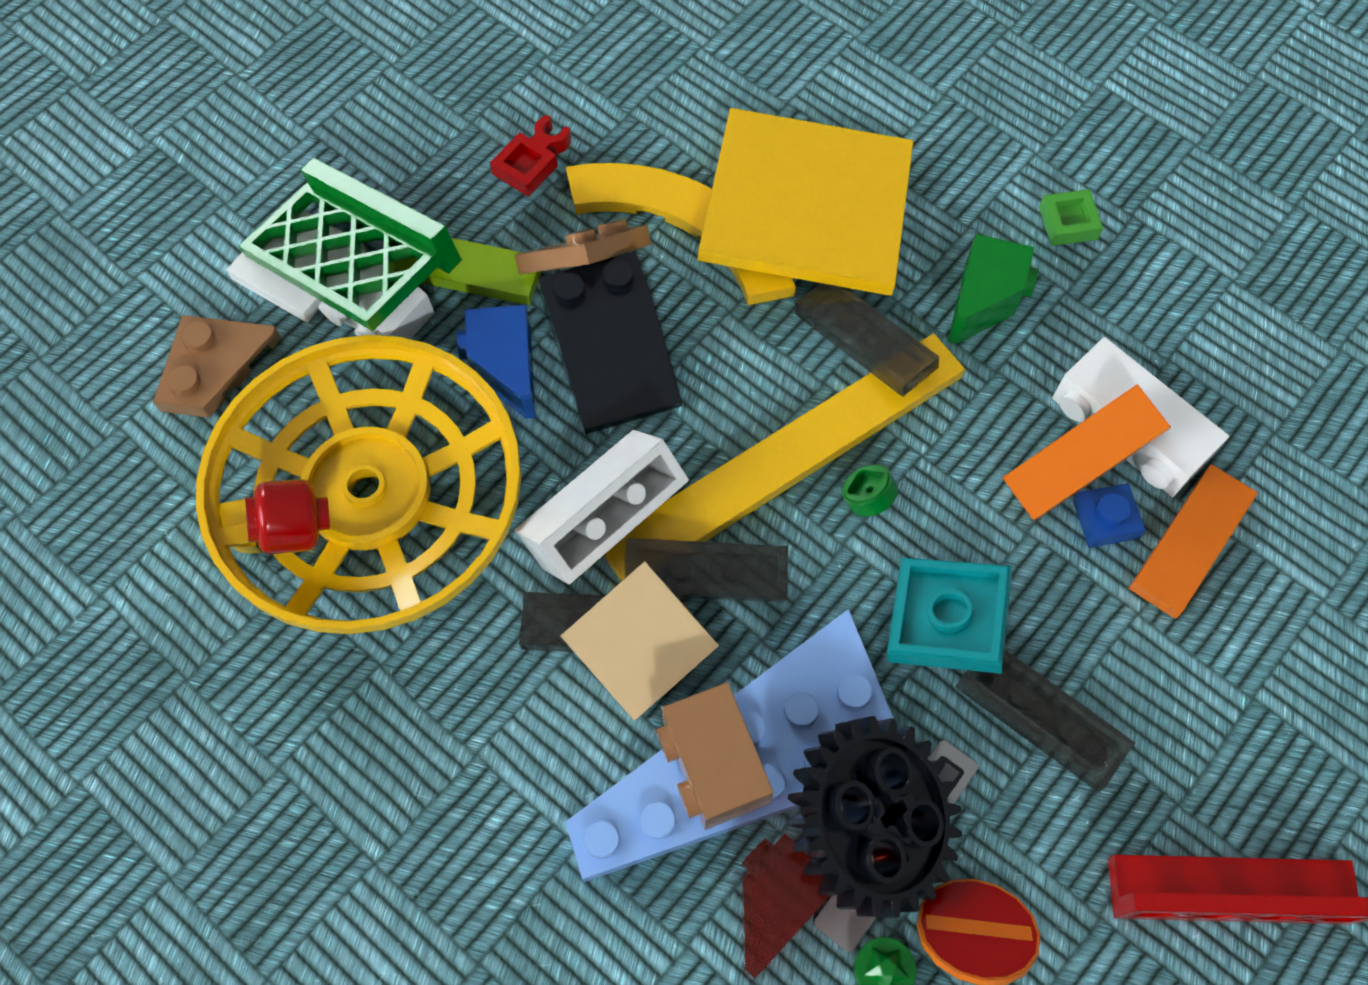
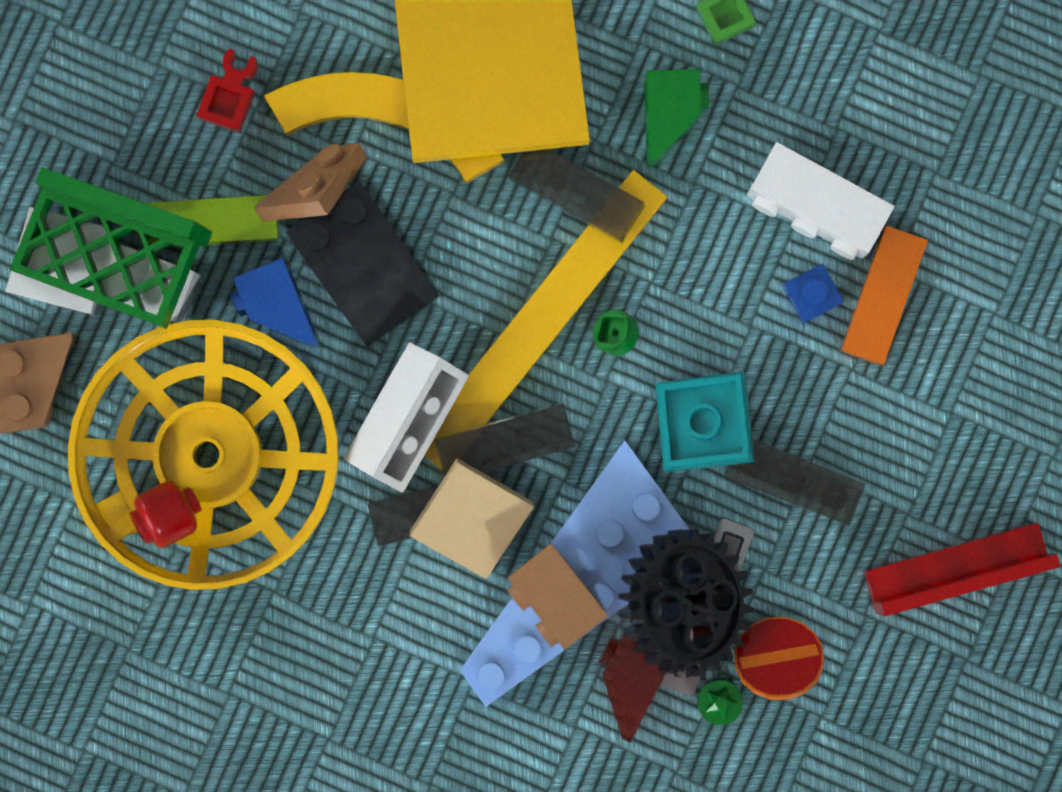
camera: 10 degrees left, 20 degrees up
(1086, 452) = (782, 254): orange tile -> none

